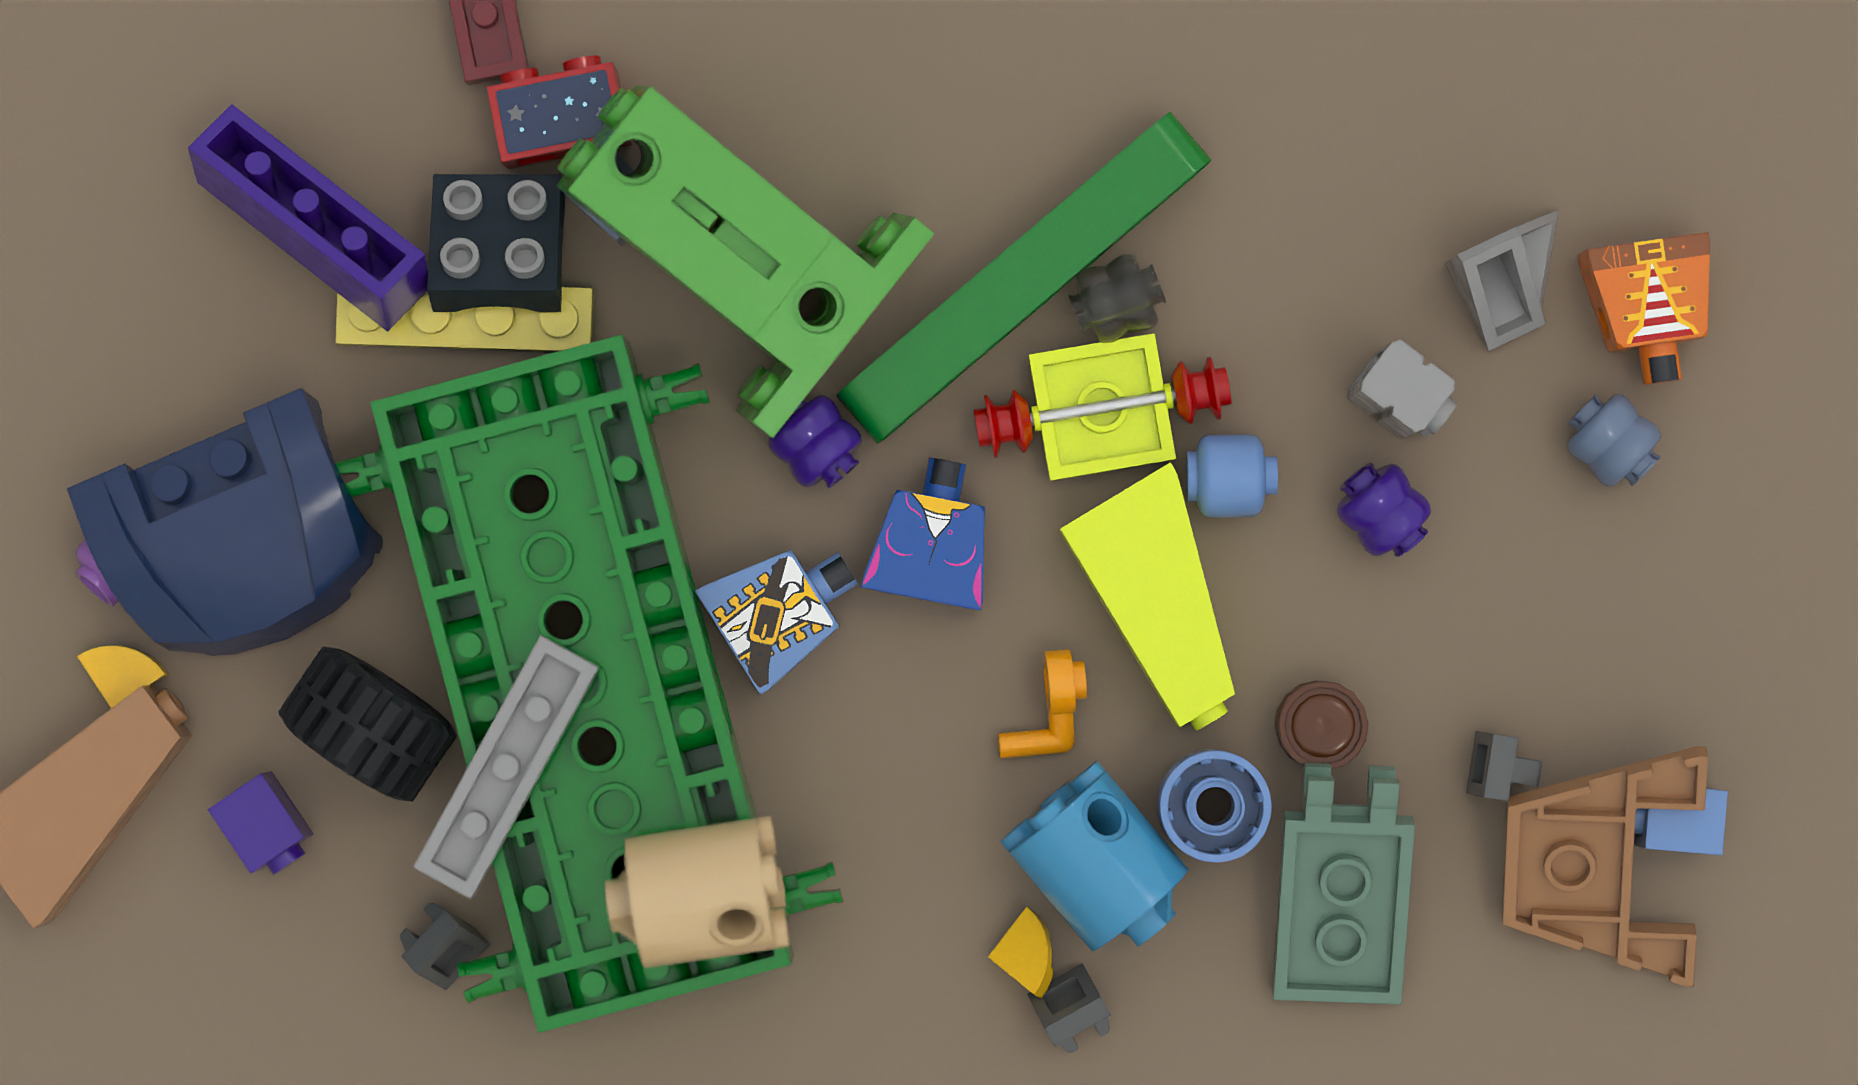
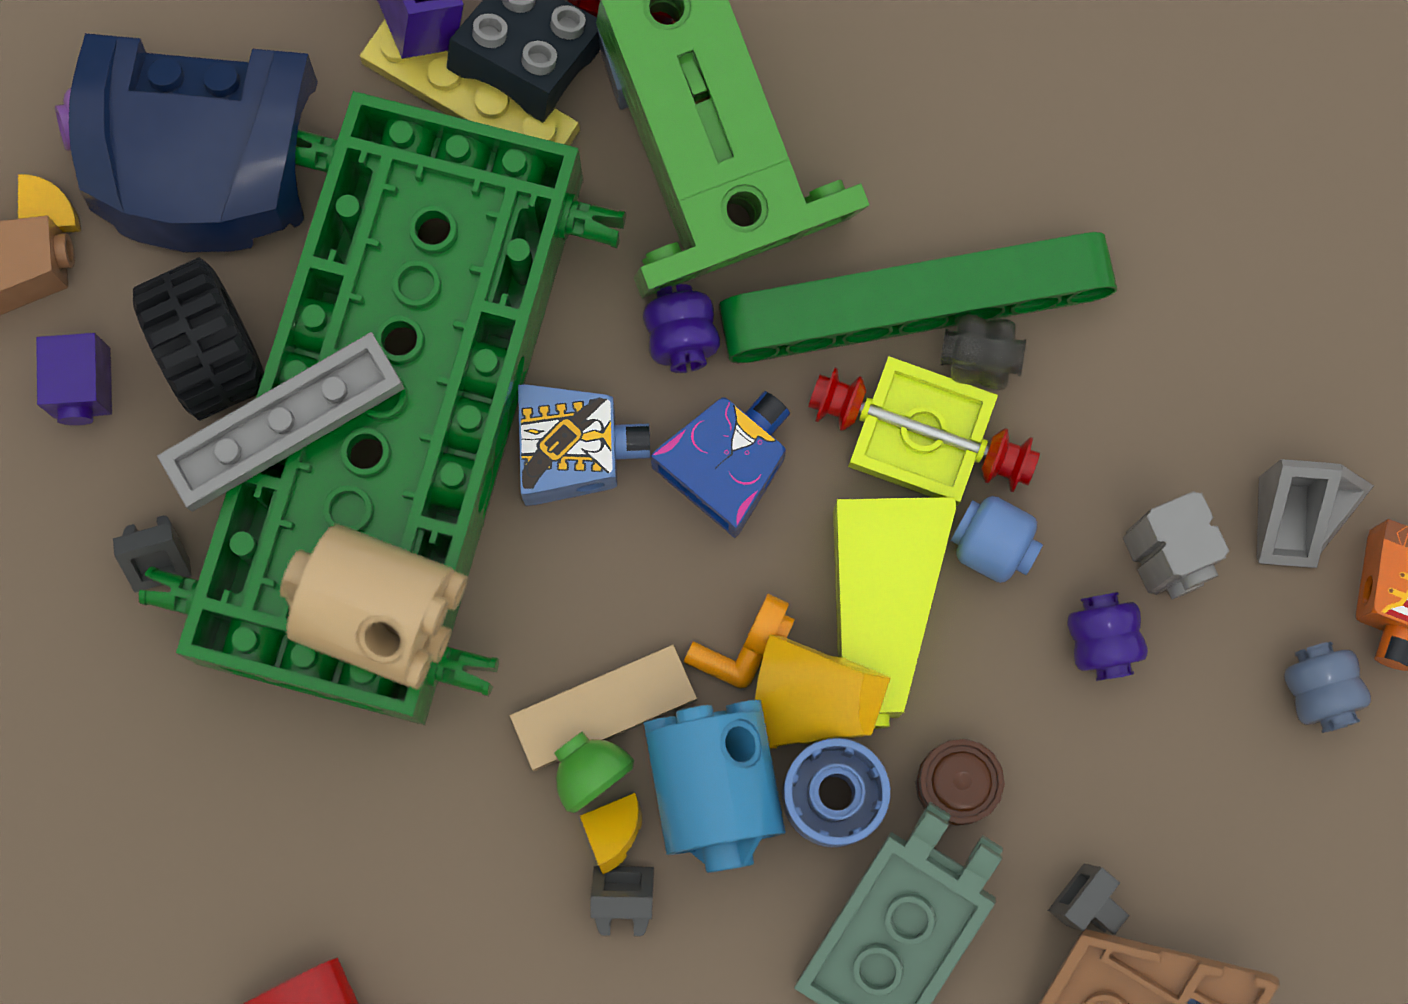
camera: 30 degrees right, 10 degrees down
(951, 844) = (604, 706): none -> tan tile
(974, 913) = (588, 770): none -> bright green brick
(1144, 726) = (816, 694): none -> yellow slope

